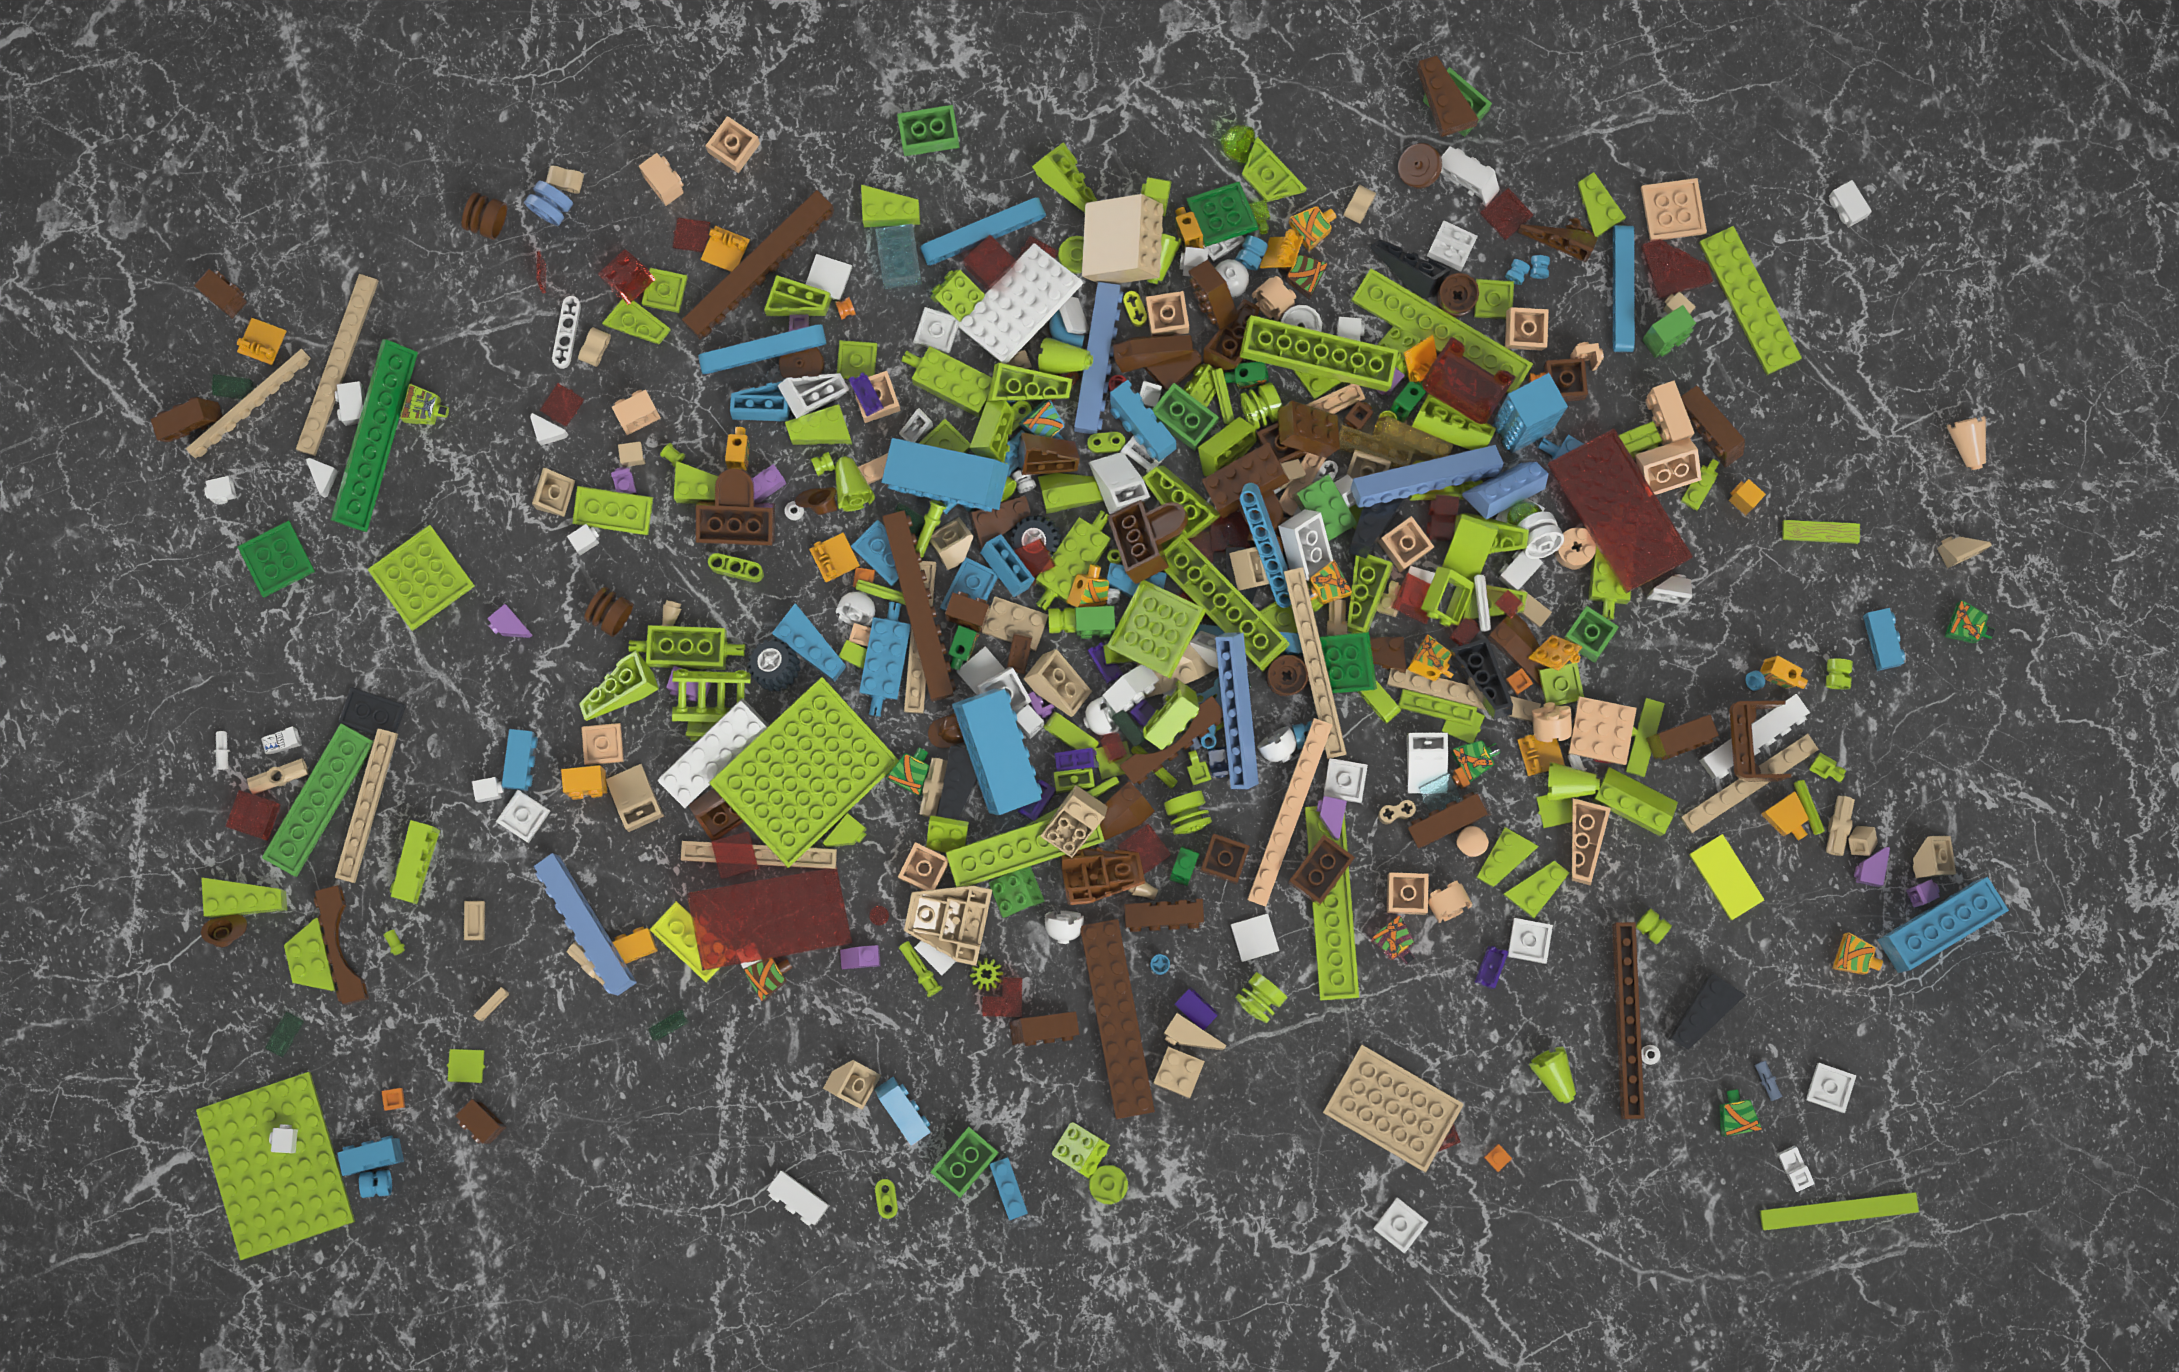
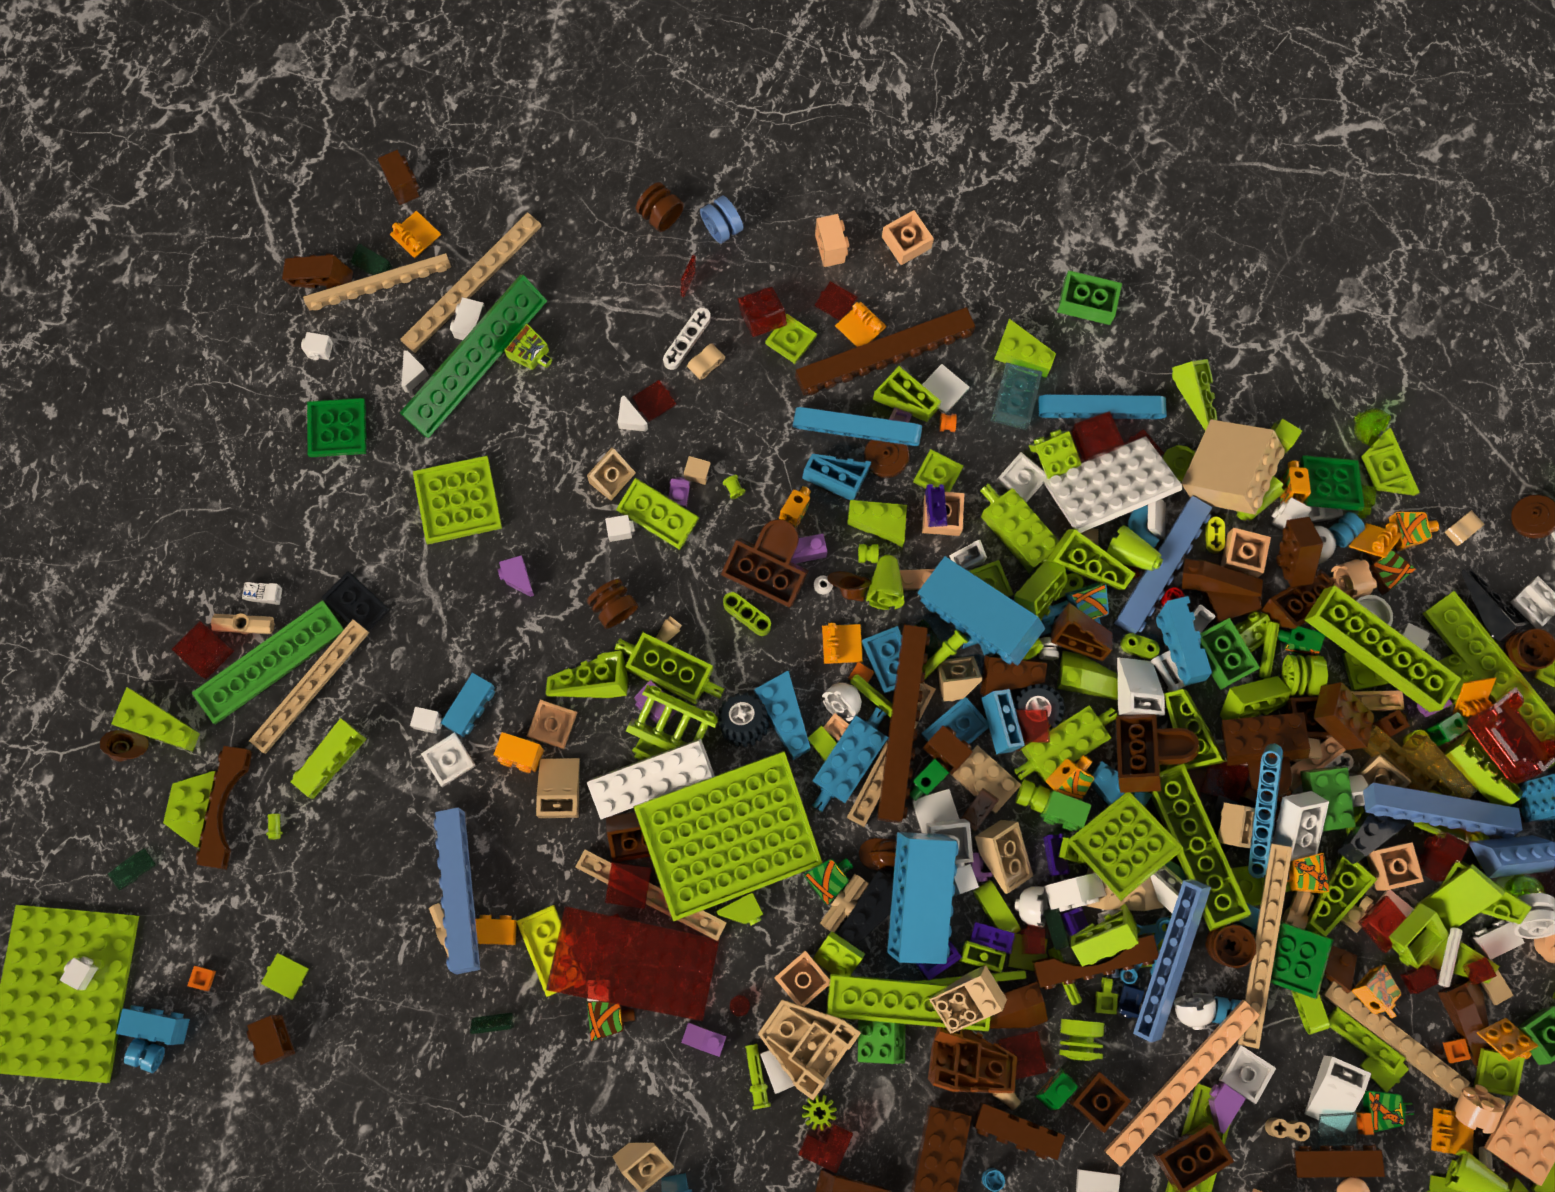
camera: 20 degrees right, 5 degrees down
(221, 751) = (204, 578): white axle -> none
(474, 920) = (358, 839): tan tile -> none
(491, 1004) = (335, 927): tan tile -> none
(565, 179) = (746, 207): tan axle -> none
(636, 322) = (754, 356): lime wing -> none
(636, 411) = (718, 433): light nougat brick -> none
(693, 484) = (741, 521): lime wedge -> none
(812, 392) = (887, 484): white wedge -> none
(1064, 925) = (915, 1098): white cylinder -> none
(1113, 596) = (1091, 794): white plate -> none
(1114, 552) = (1109, 754): lime pin -> none
(1483, 675) = (1427, 1033): black wedge -> none

